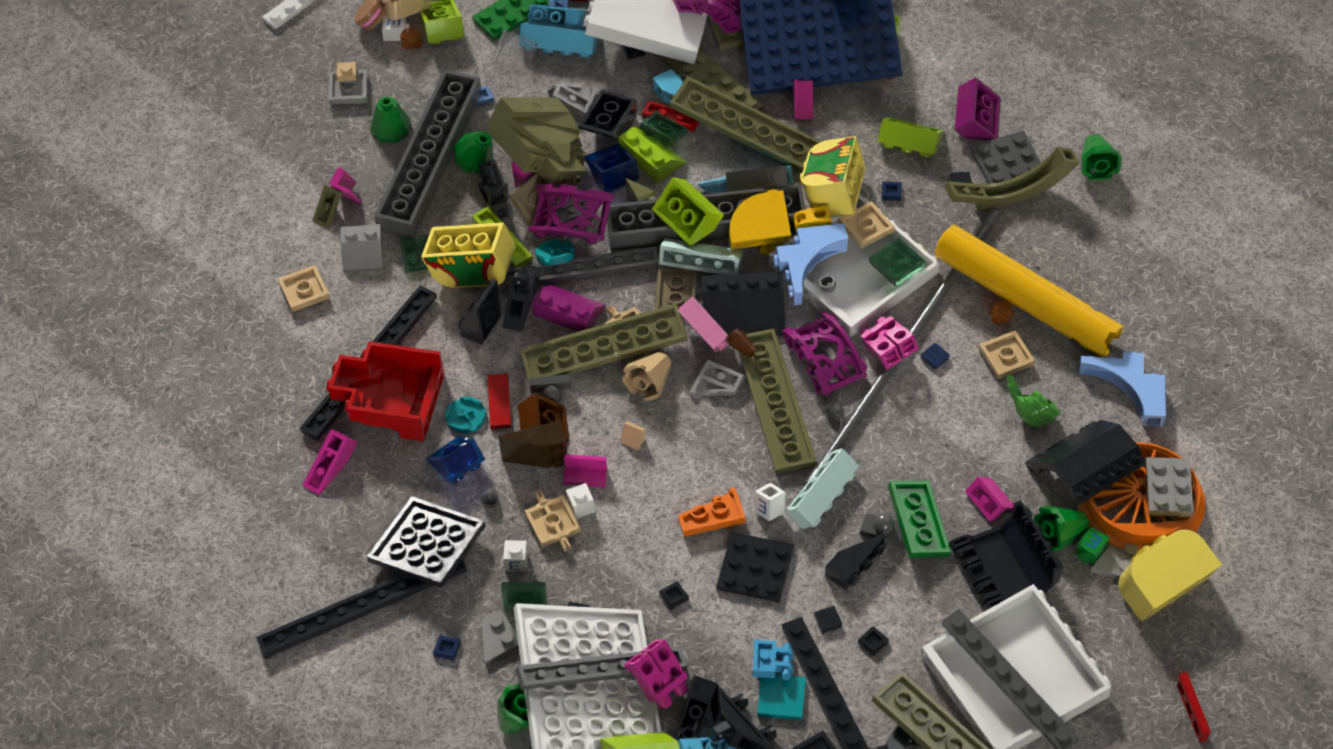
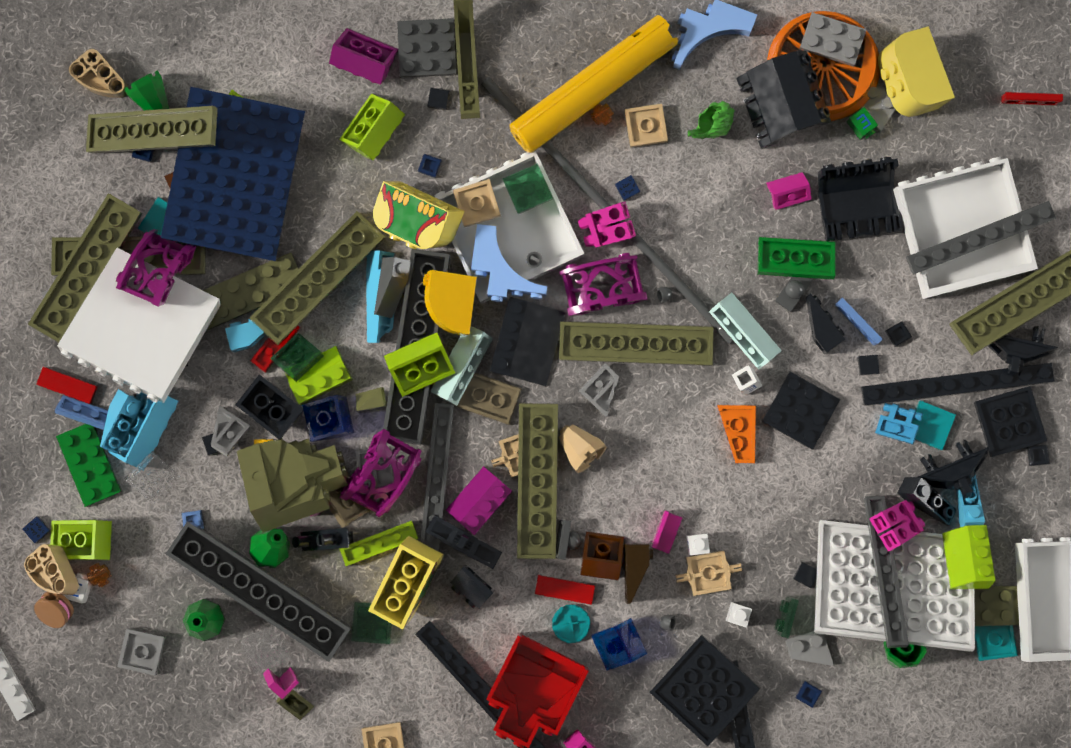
camera: 75 degrees left, 30 degrees up
(346, 71) = (125, 650): tan plate -> none
(362, 247) = (354, 680): light grey slope -> none
(555, 252) = (414, 499): teal tile -> none
(633, 435) = (639, 480): tan slope -> none
(674, 595) = (809, 487): black tile -> none
(704, 324) = (545, 384): bright pink slope -> none
(740, 342) = (572, 357): reddish brown cone -> none
(803, 100) = (302, 214): dark pink panel -> none
(812, 217) = (459, 250): yellow leg -> none
(871, 594) = (858, 322): none -> medium blue tile
(1061, 525) = (840, 143): green cone -> none

